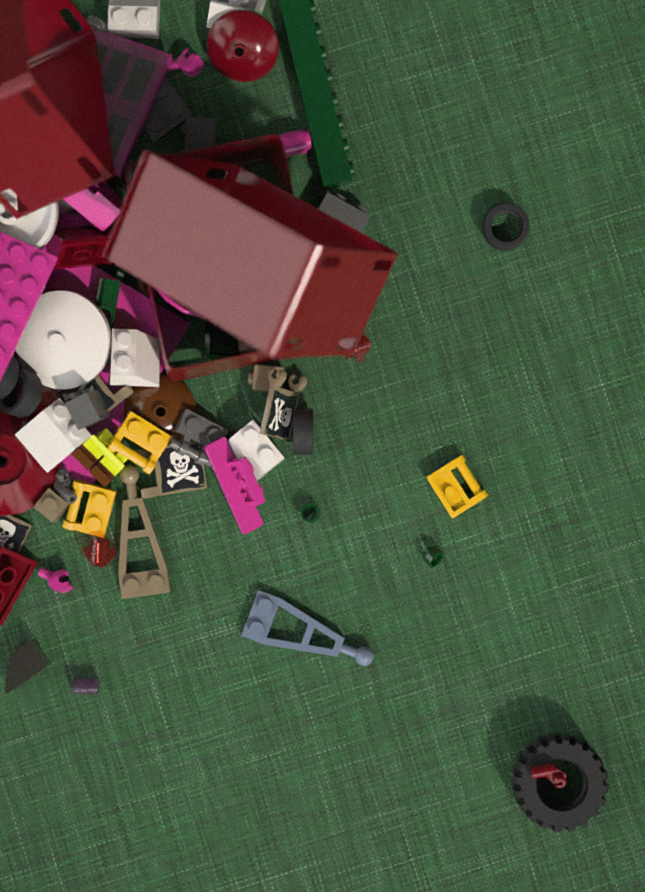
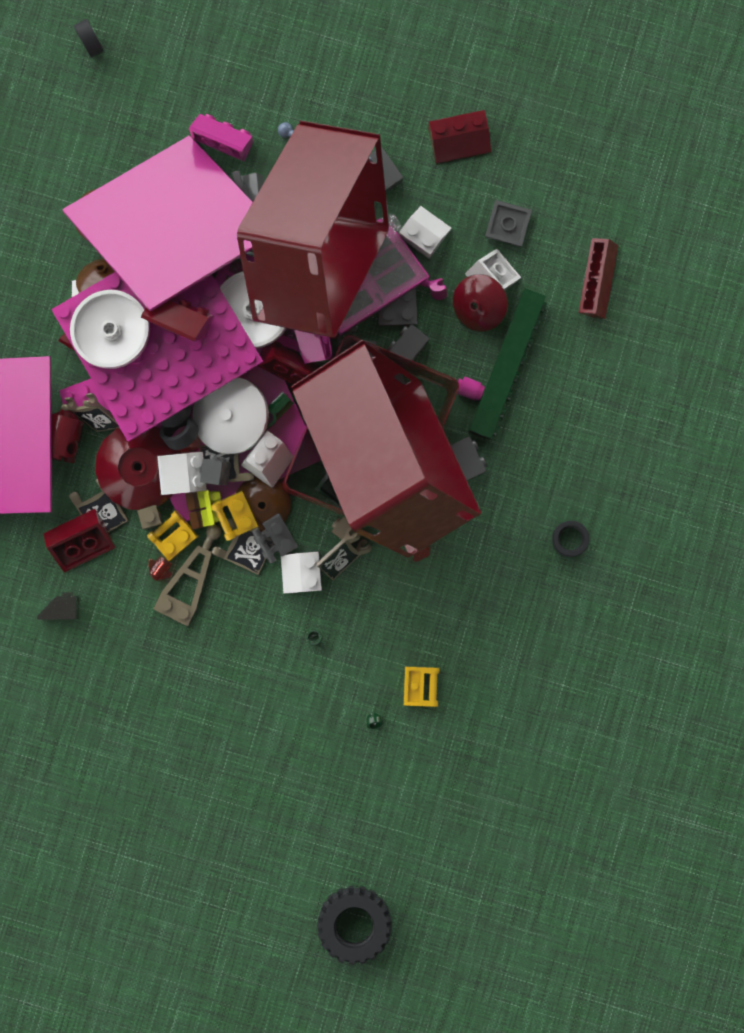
camera: 30 degrees right, 0 degrees up
(55, 579) = (119, 566): dark pink piece -> none
(62, 486) = (165, 510): dark grey arm -> none
(85, 685) = (91, 649): clear purple piece -> none
(237, 483) = (279, 586): dark pink bracket -> none
(262, 617) = (235, 684): sand blue plate -> none
(303, 432) = (345, 581): black tyre -> none
(551, 772) = (352, 914): dark red arm -> none

